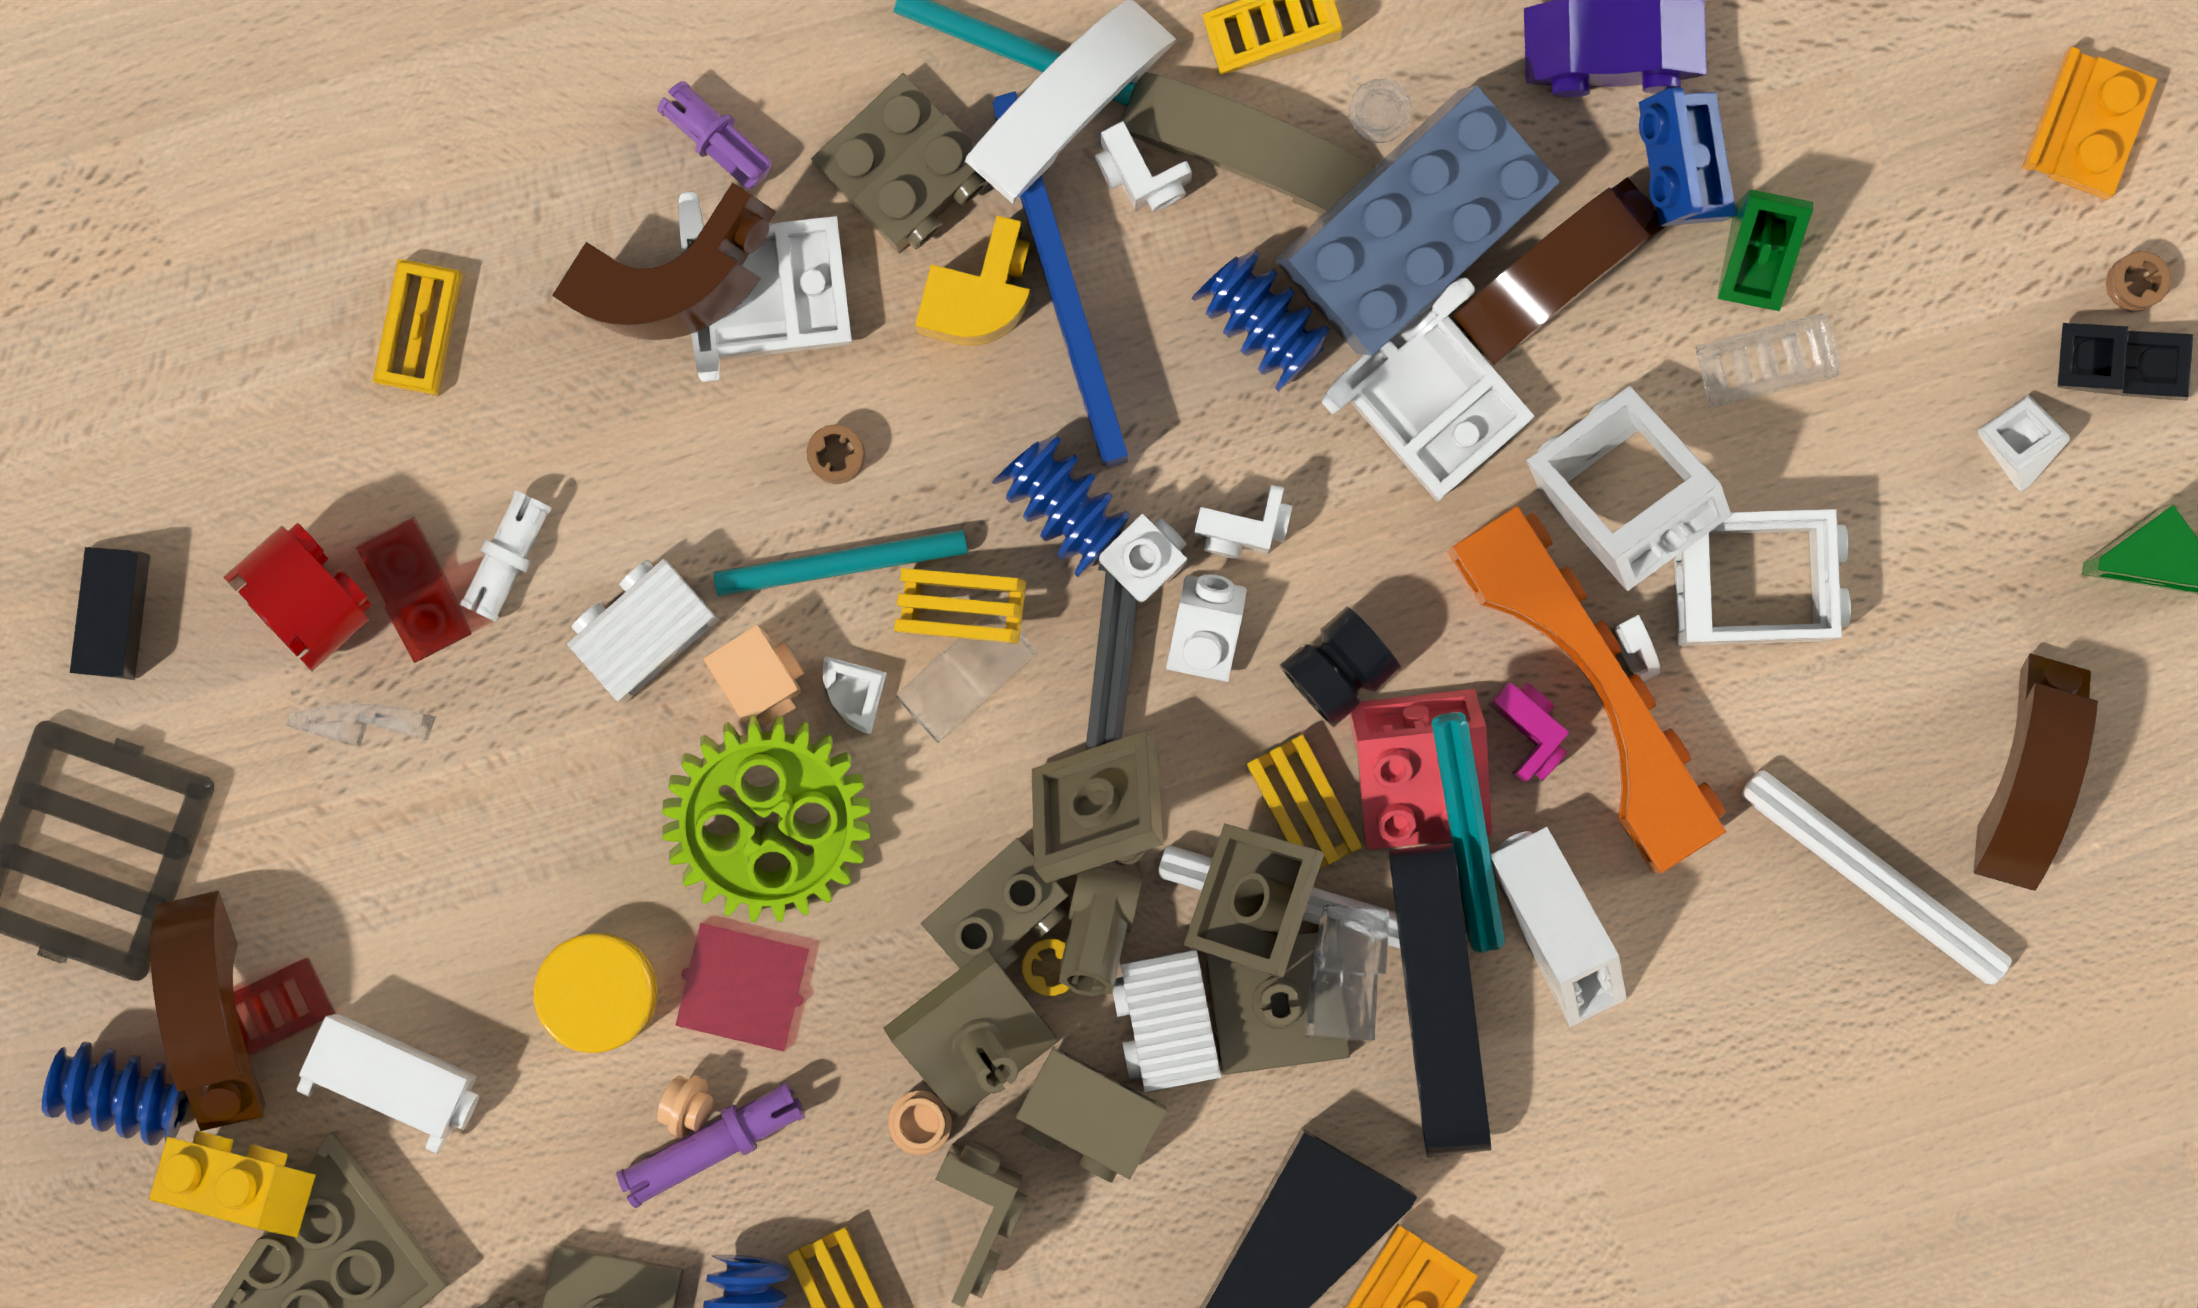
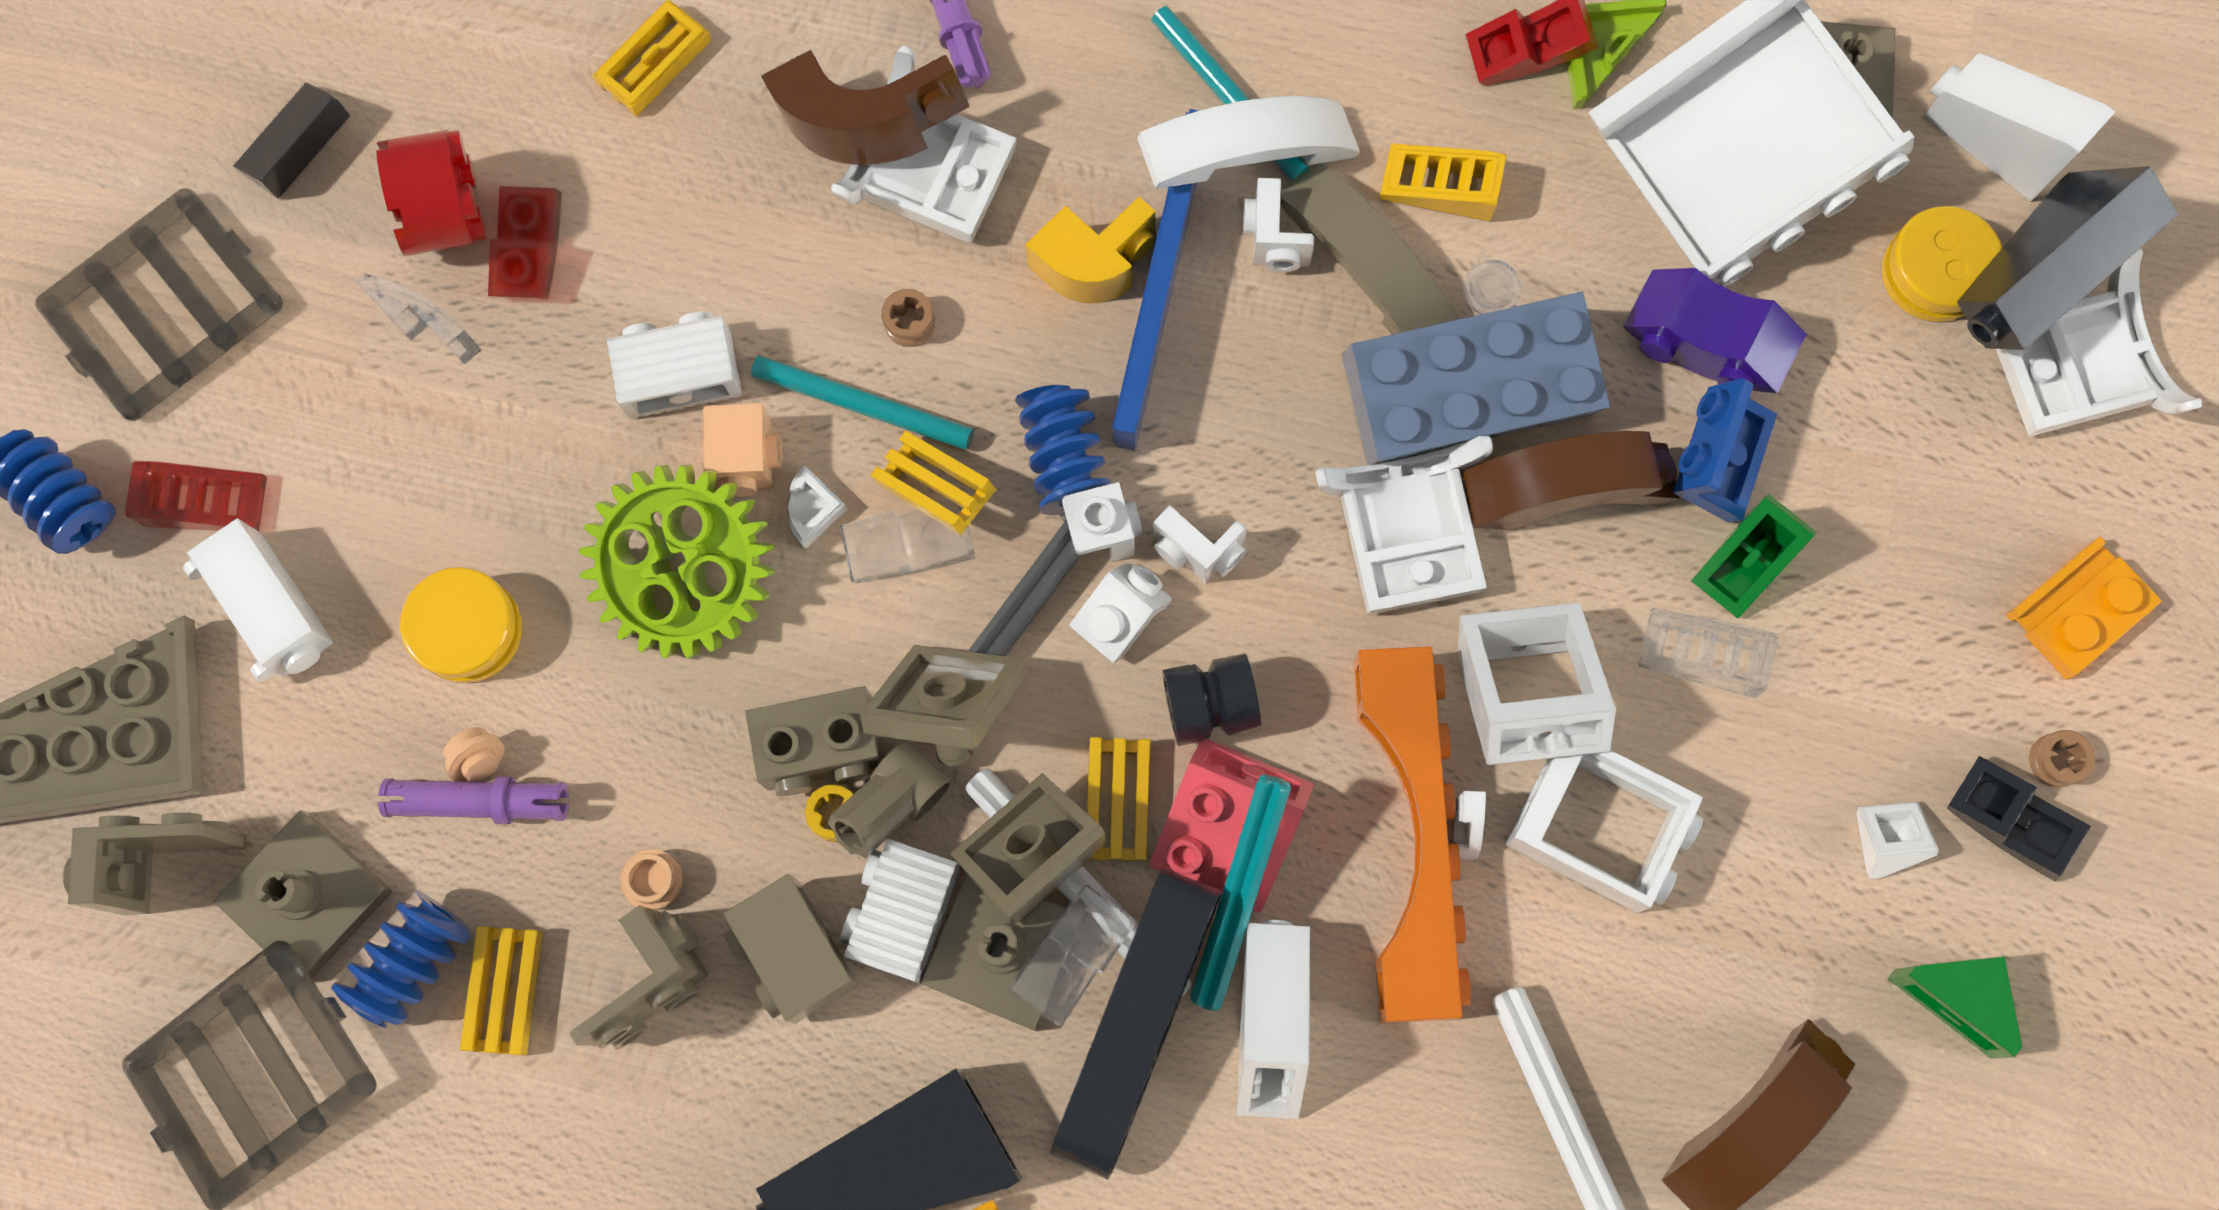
camera: 30 degrees right, 10 degrees down
(197, 1012) = (138, 457): reddish brown arch -> none
(231, 1186) = (78, 610): yellow brick -> none
(505, 556) = (608, 255): white pin -> none
(742, 987) = (581, 690): clear pink piece -> none
(901, 165) = (1089, 131): dark tan plate -> none
(971, 1034) = (732, 826): dark tan tile -> none
(1263, 317) = (1305, 391): blue piece -> none
(1529, 714) = (1347, 827): dark pink bracket -> none

